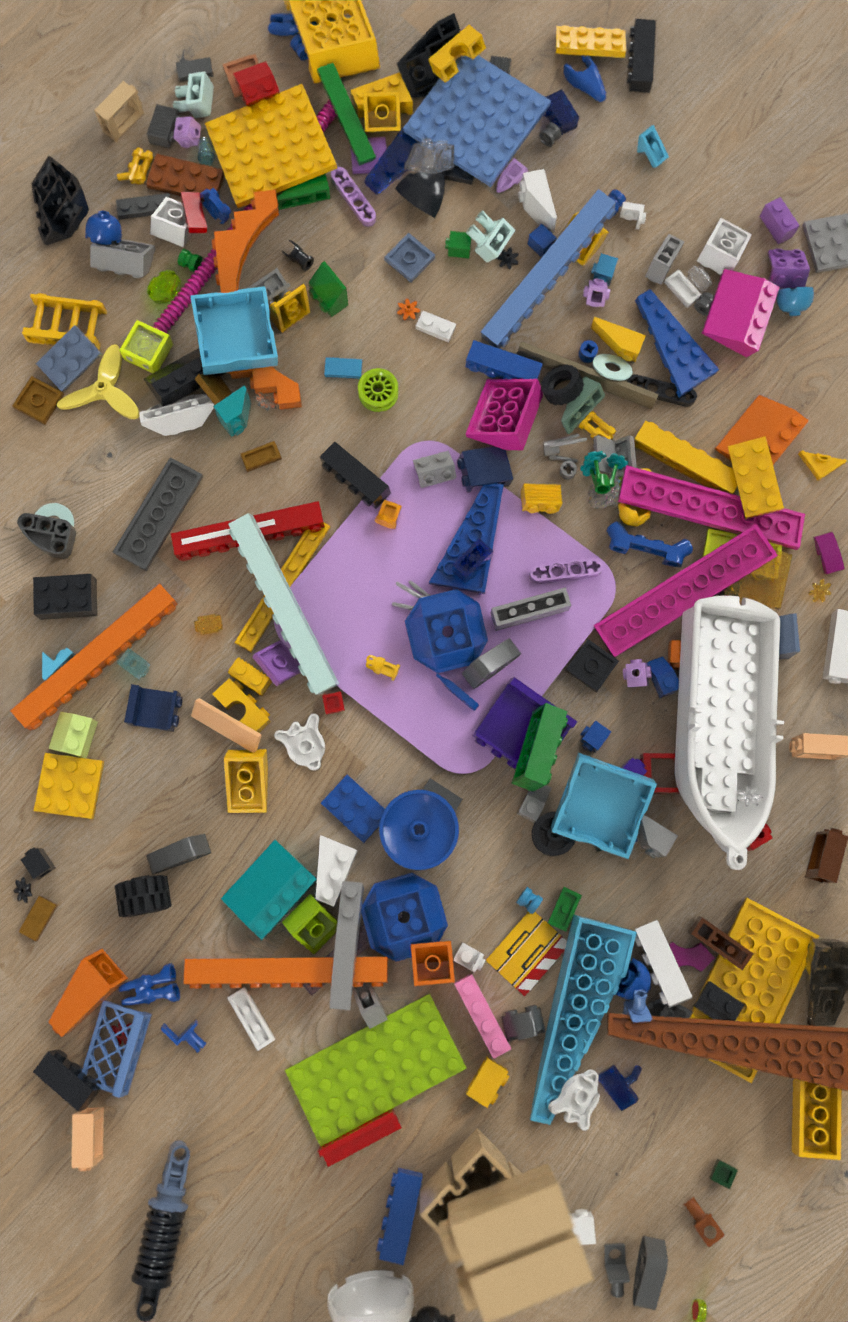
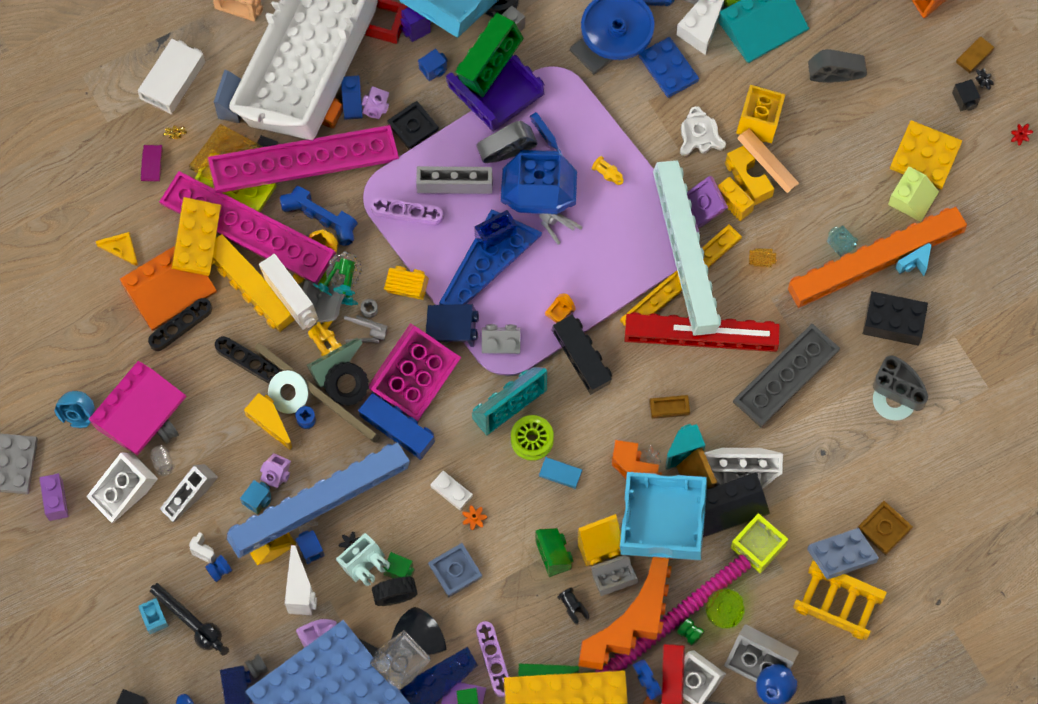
camera: 160 degrees left, 10 degrees down
(104, 388) = (830, 516): light yellow piece -> none
(142, 895) = (876, 37): black wheel -> none
(153, 708) = (831, 198): dark blue panel -> none
(333, 703) = (662, 155): red plate -> none
(408, 410) = (510, 400): none -> teal slope
(454, 216) = (394, 591): none -> black tyre
(601, 145) = (206, 635): none -> black piece
(646, 439) = (288, 291): none -> white brick
(676, 347) = (214, 394): blue wing -> none
(682, 288) = (181, 457): white tile -> none
(735, 406) = (178, 322): none -> black beam
(788, 268) = (65, 448): medium lavender bracket -> none

